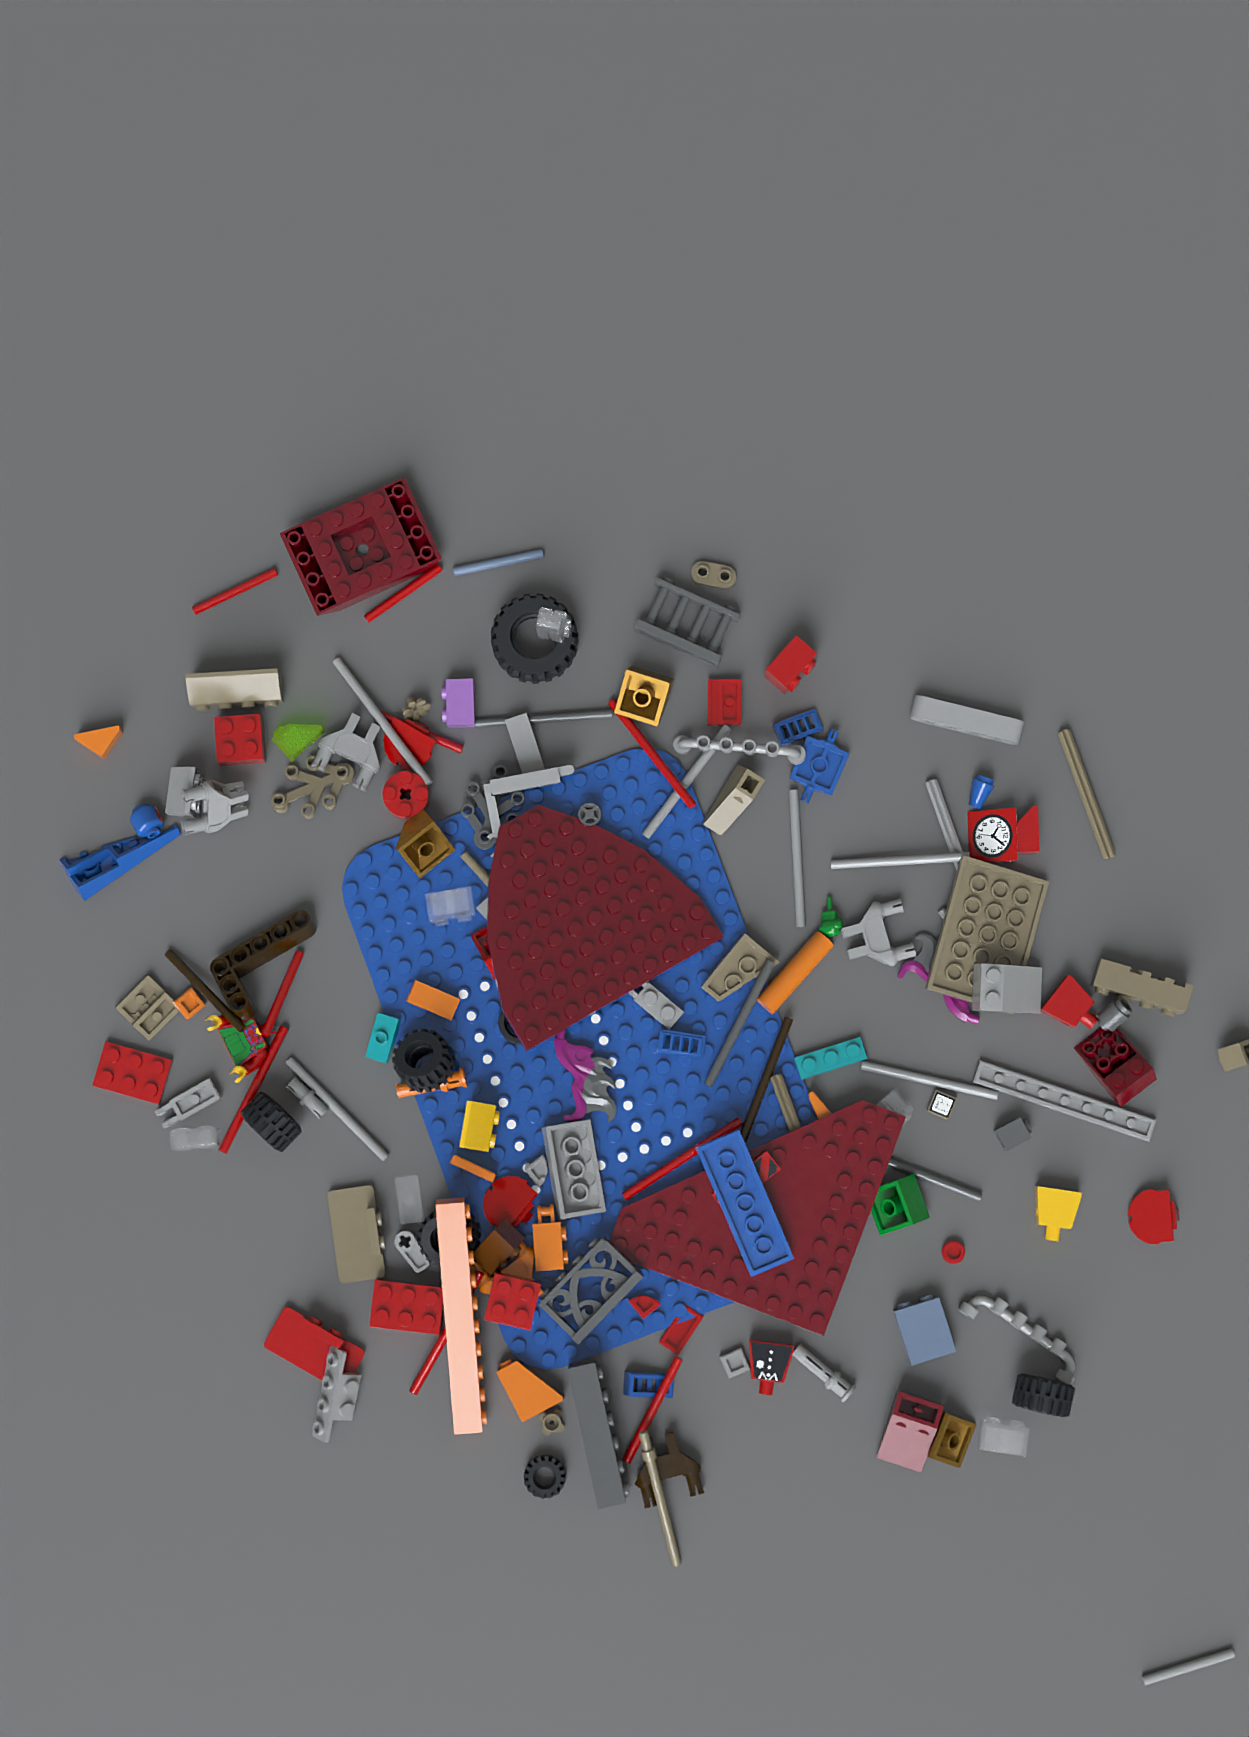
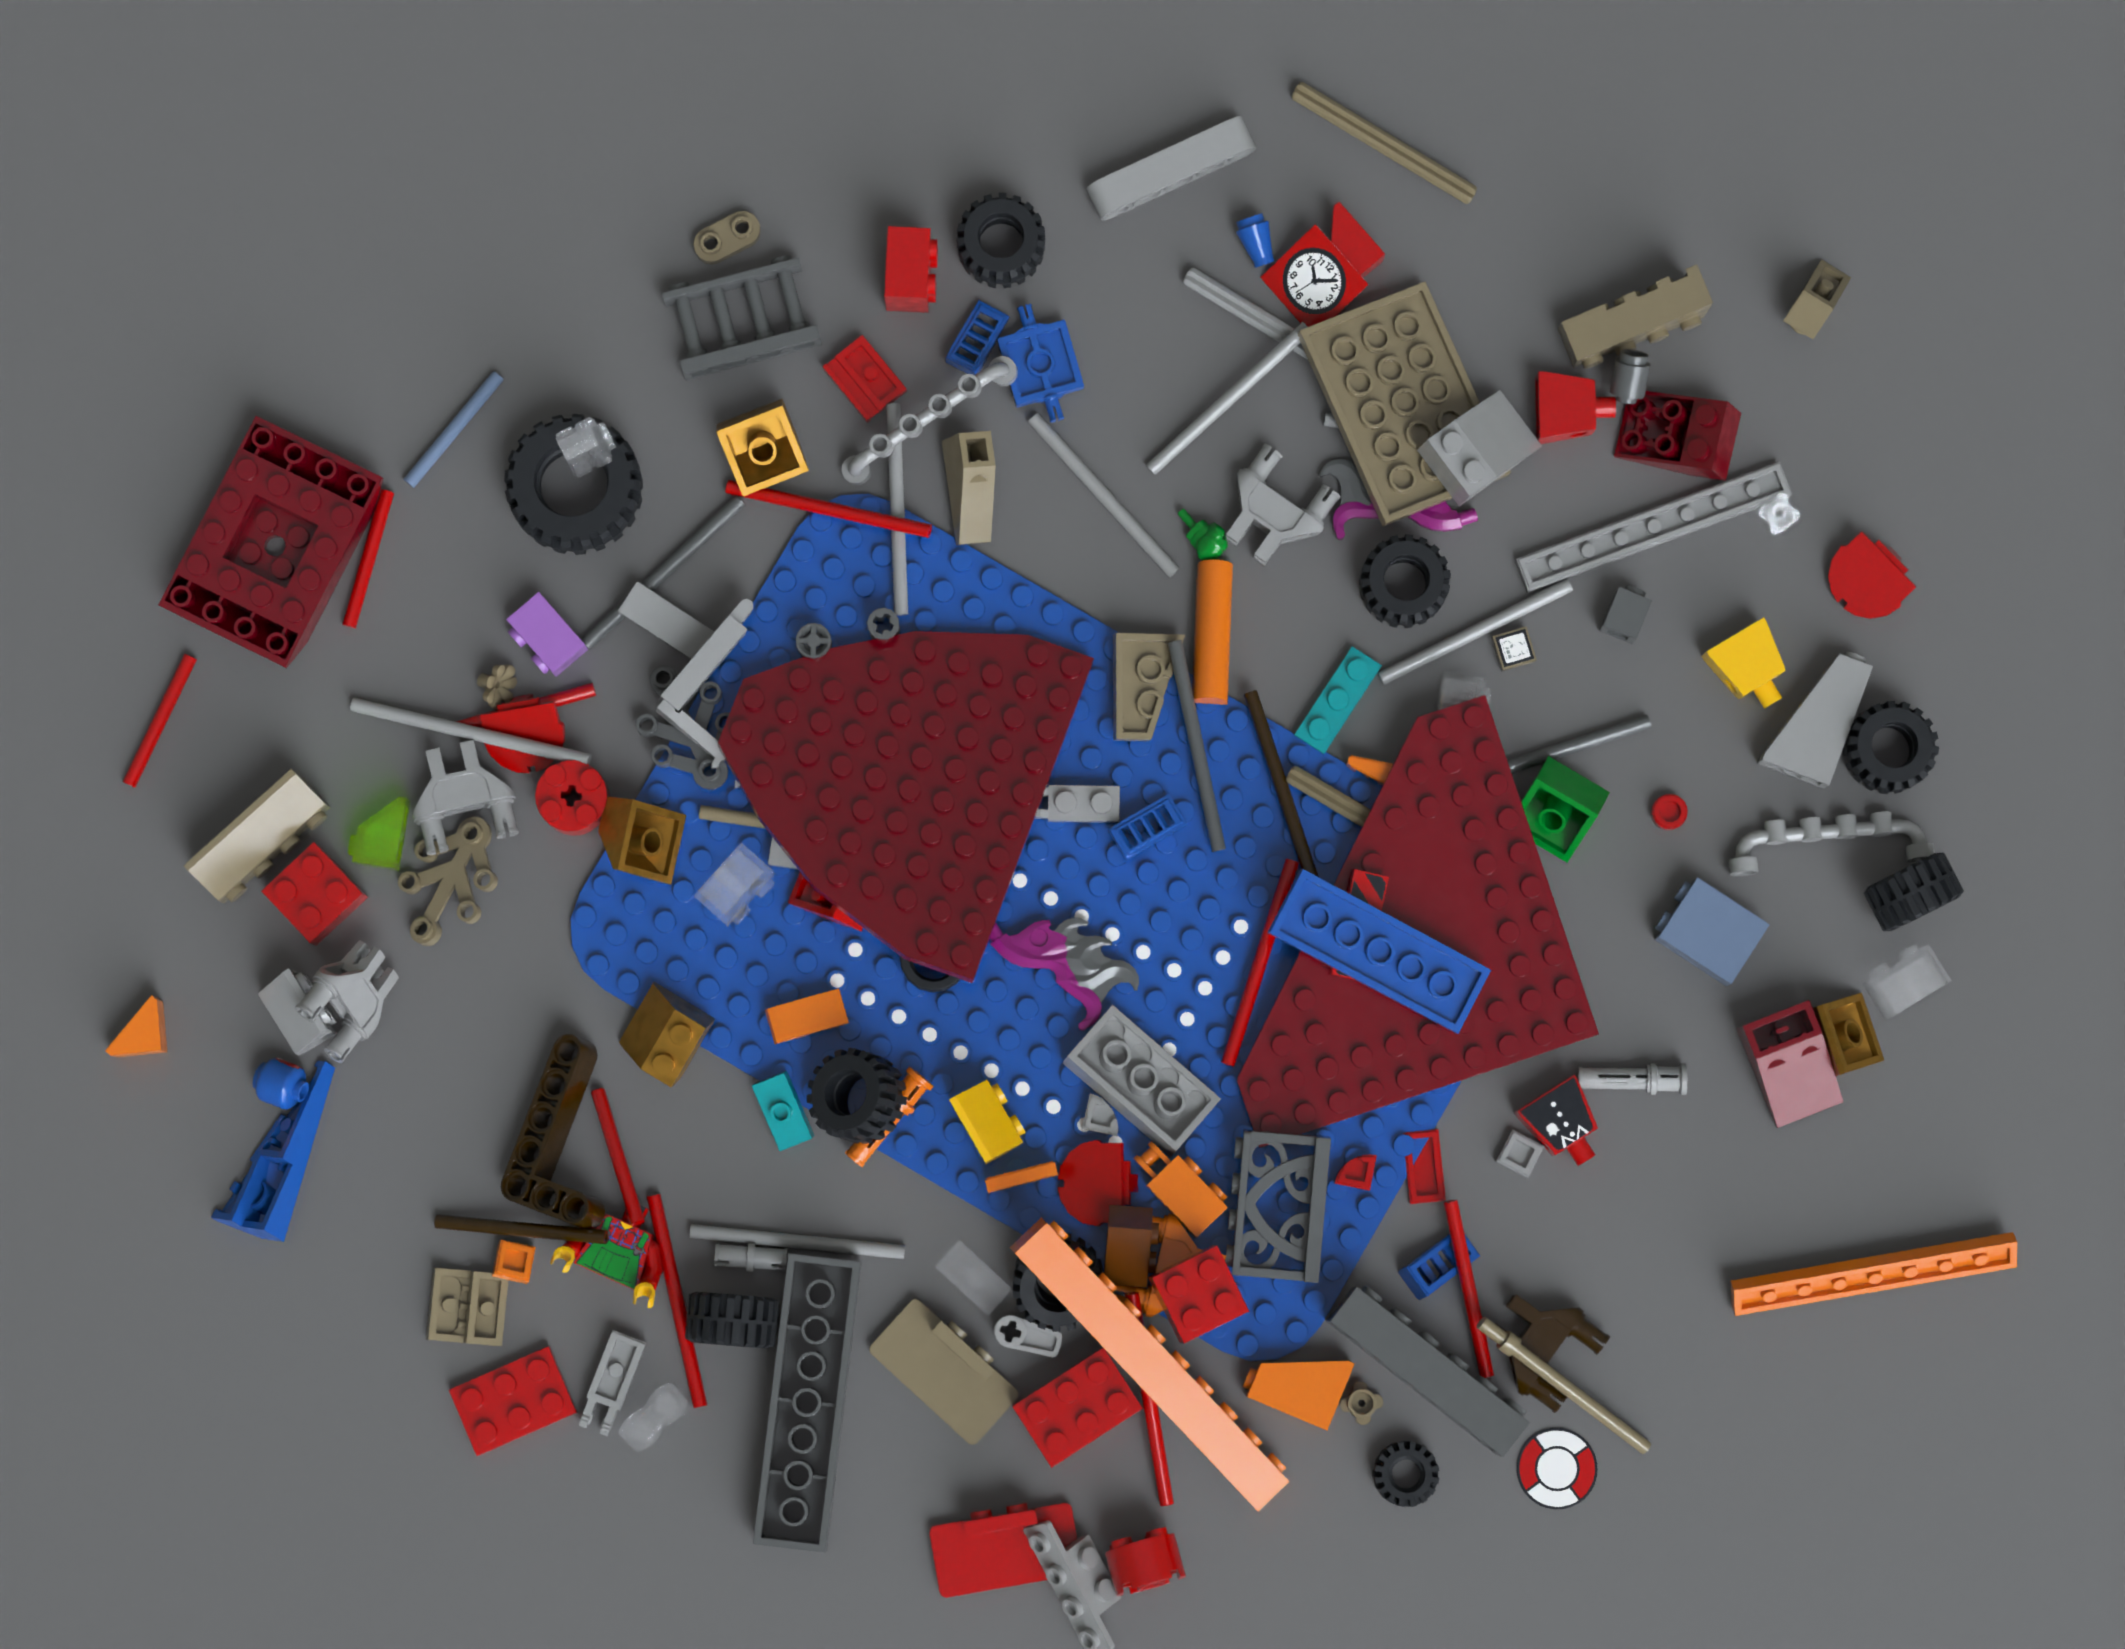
camera: 45 degrees left, 0 degrees up
(275, 1194) = (807, 1403): none -> dark grey brick
(355, 951) = (665, 1034): none -> pearl gold slope
(376, 1412) = (1144, 1562): none -> red brick
(623, 1537) = (1557, 1468): none -> sticker
(634, 828) = (880, 615): none -> dark grey bush
(849, 668) = (1001, 211): none -> black tyre
(864, 1572) = (1874, 1273): none -> orange plate
(932, 1018) = (1404, 551): none -> black tyre
(1065, 1271) = (1818, 728): none -> light grey slope
(1113, 1312) = (1911, 726): none -> black tyre
(1139, 1151) = (1789, 514): none -> clear plate

